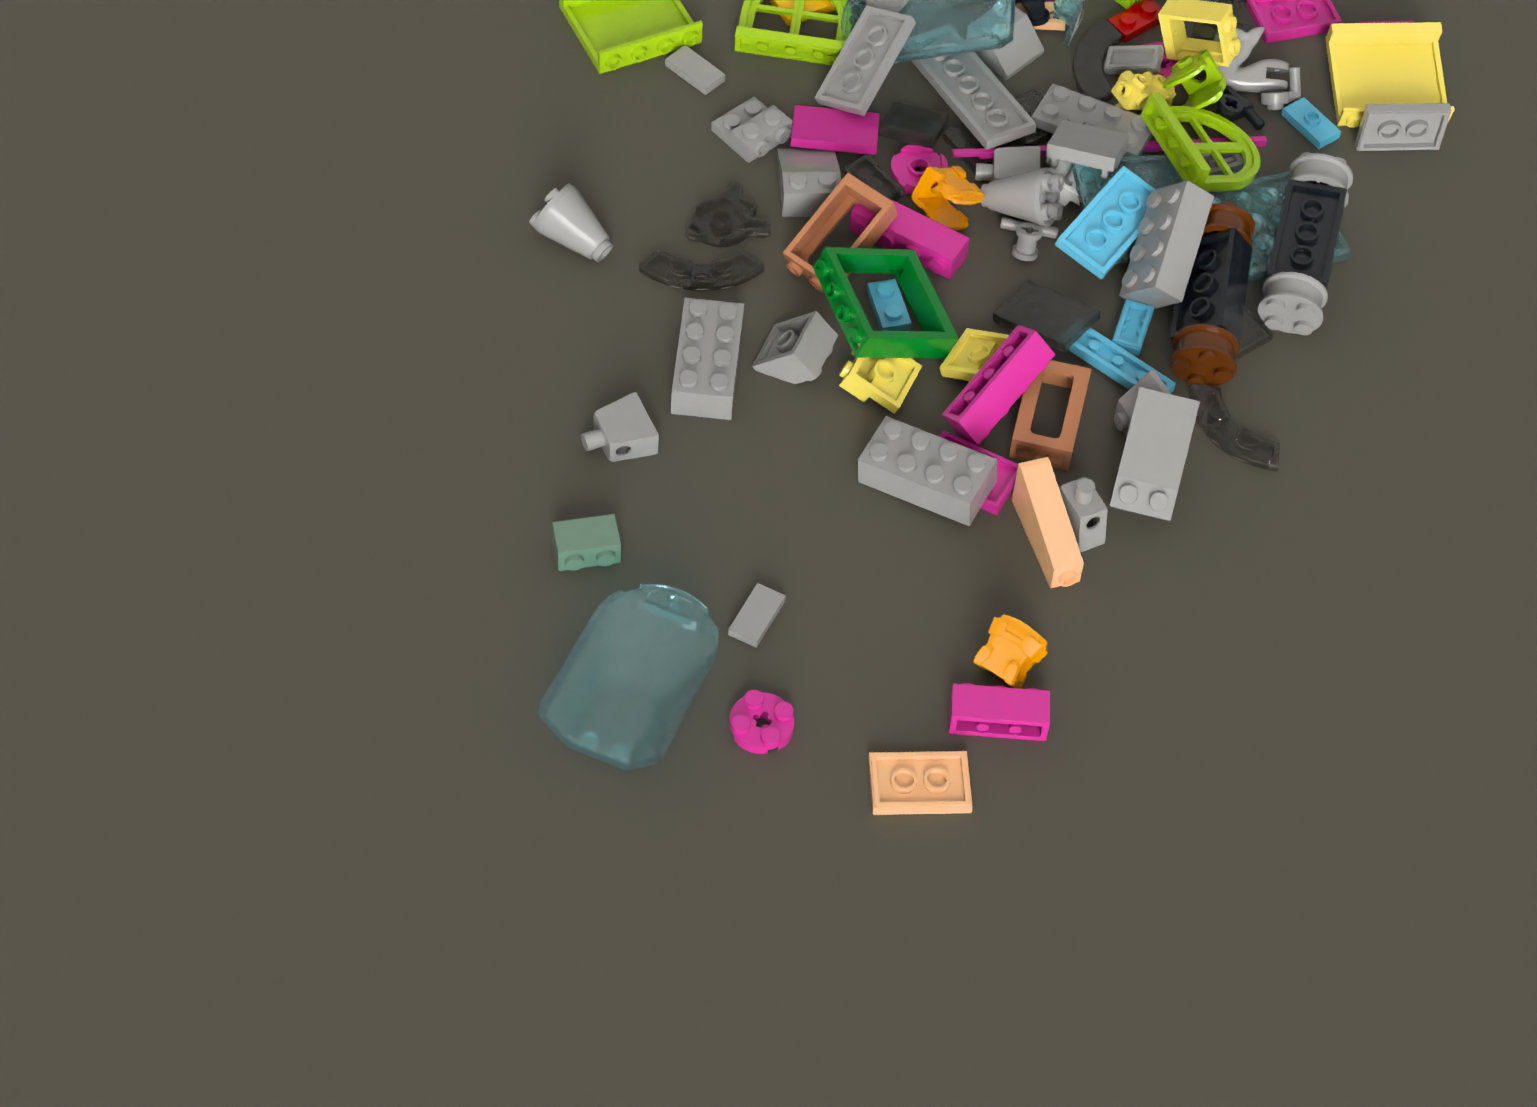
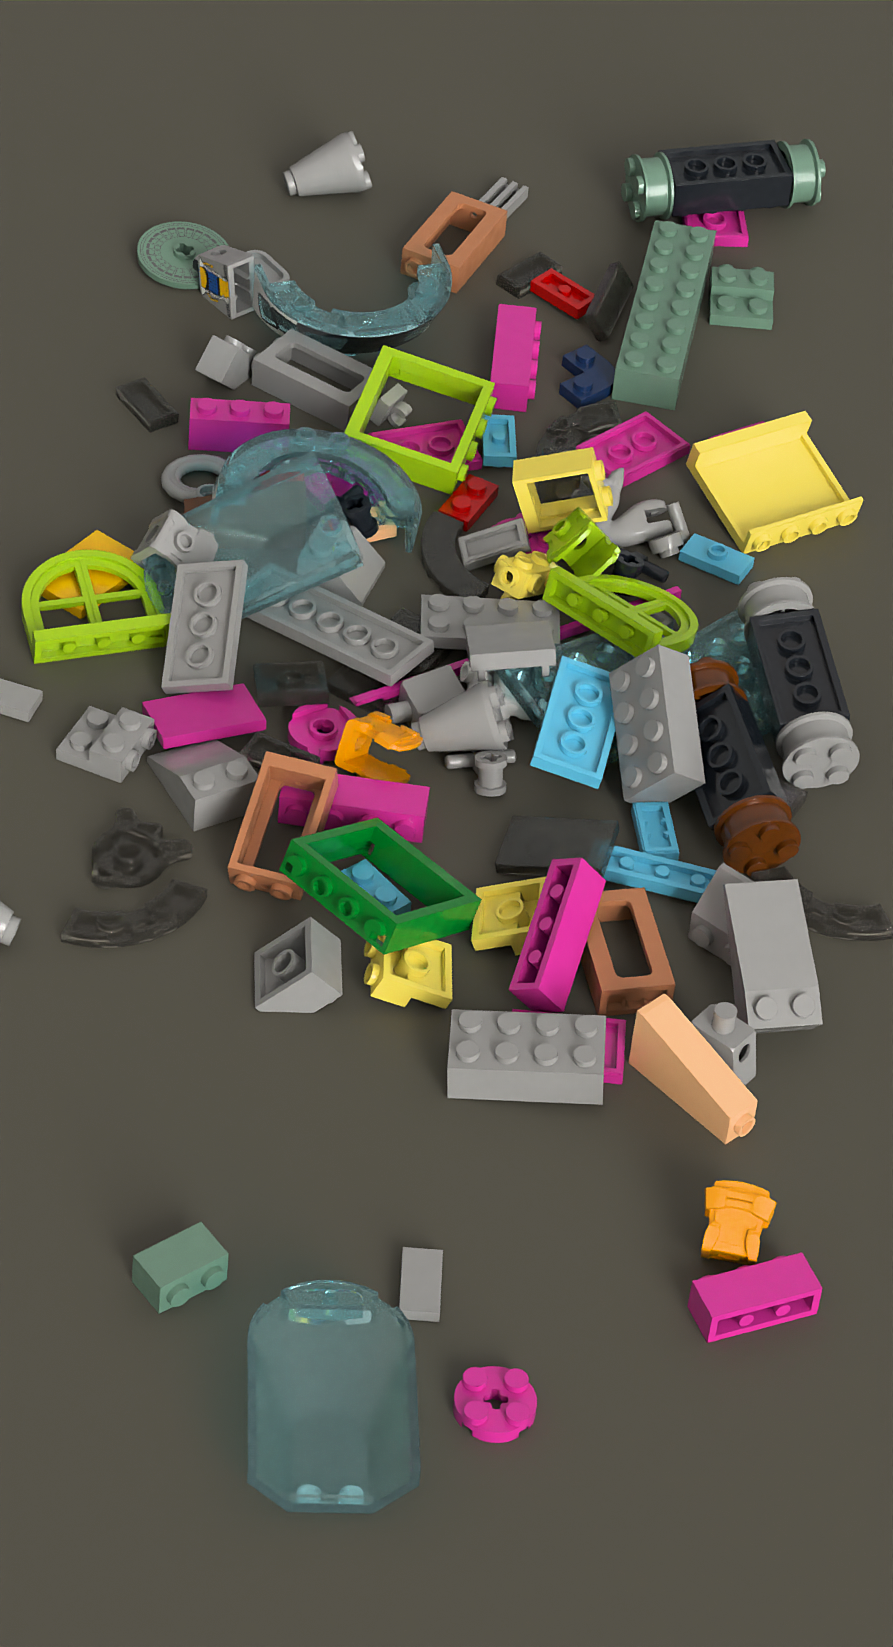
camera: 25 degrees left, 10 degrees down
(622, 430) = (152, 1125): light grey torso -> none
(707, 358) = (205, 1013): light grey brick -> none
(920, 782) = (708, 1408): light nougat tile -> none
(1402, 127) = (821, 532): light grey tile -> none

